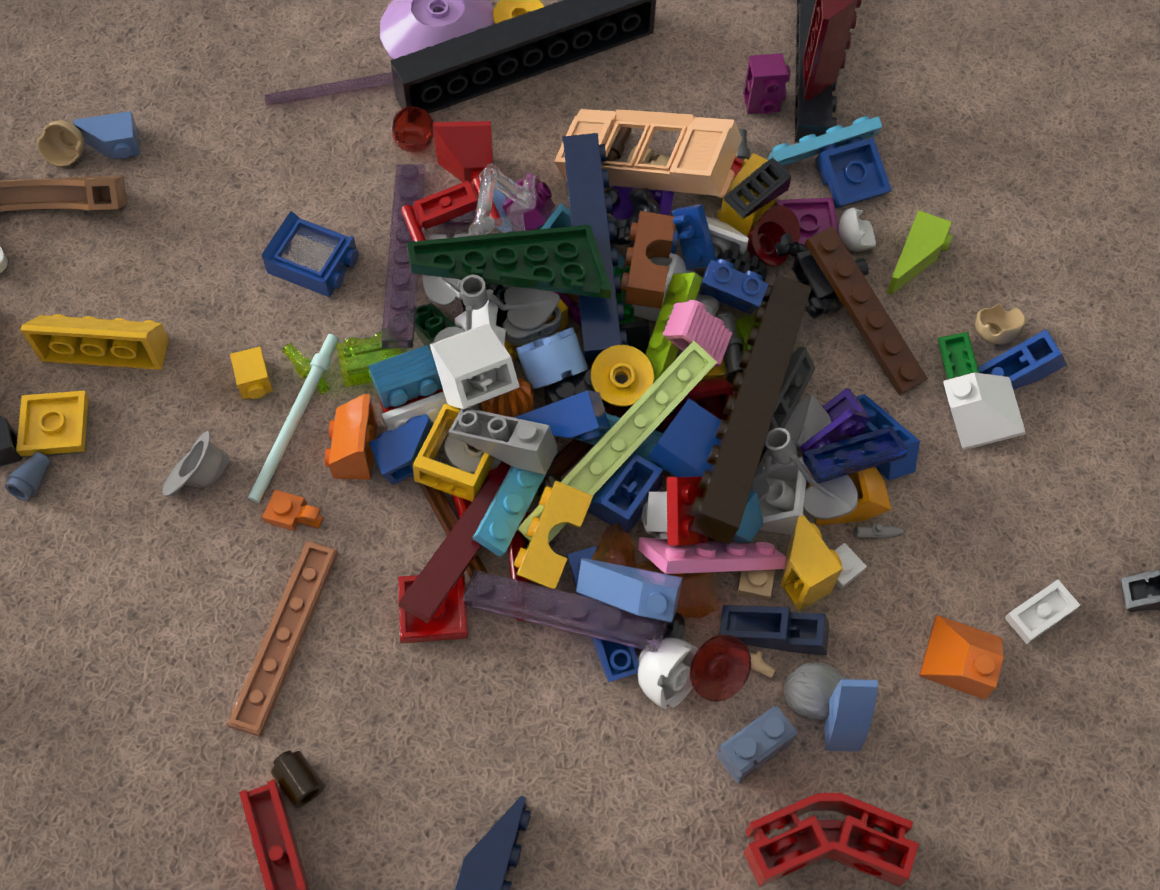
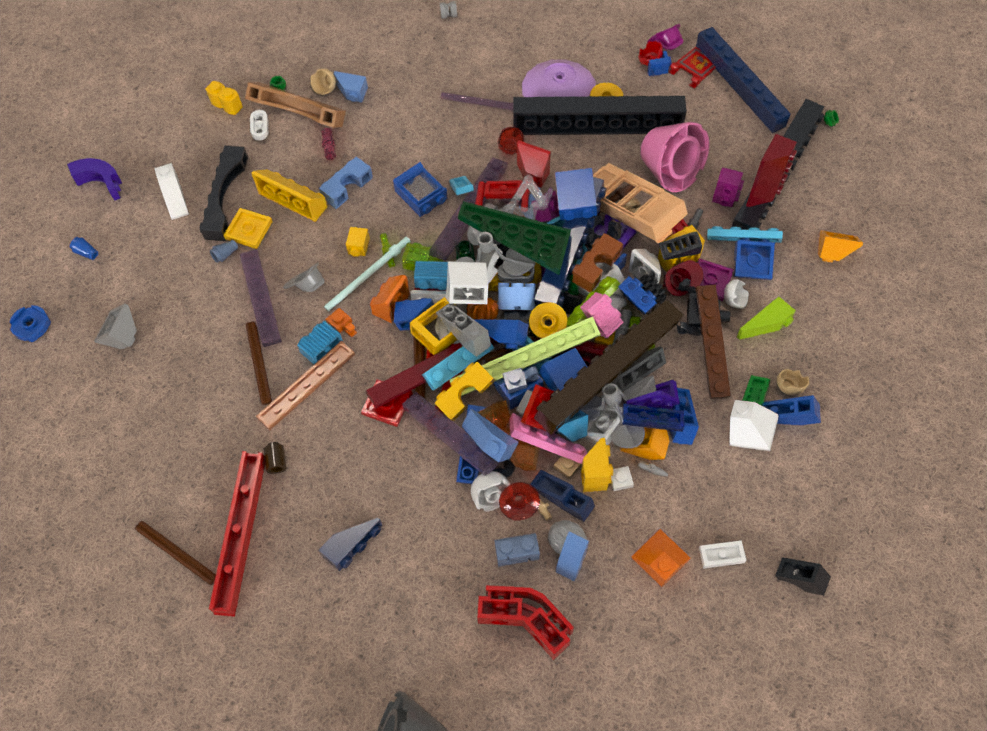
camera: 30 degrees right, 0 degrees up
(120, 238) = (328, 143): none -> clear pink pin
(134, 528) = (260, 298): none -> clear purple plate
(185, 635) = (258, 362): none -> reddish brown axle
(187, 267) = (353, 172): none -> medium blue arch
(272, 558) = (319, 342): none -> dark azure brick
(372, 223) = (461, 185): none -> medium azure plate
(570, 168) = (576, 194): none -> brick
(626, 484) = (517, 379): none -> sand blue plate
(668, 60) = (676, 154): none -> bright pink cone
(694, 236) = (630, 259): blue plate -> none
(951, 112) = (836, 245): none -> light orange slope

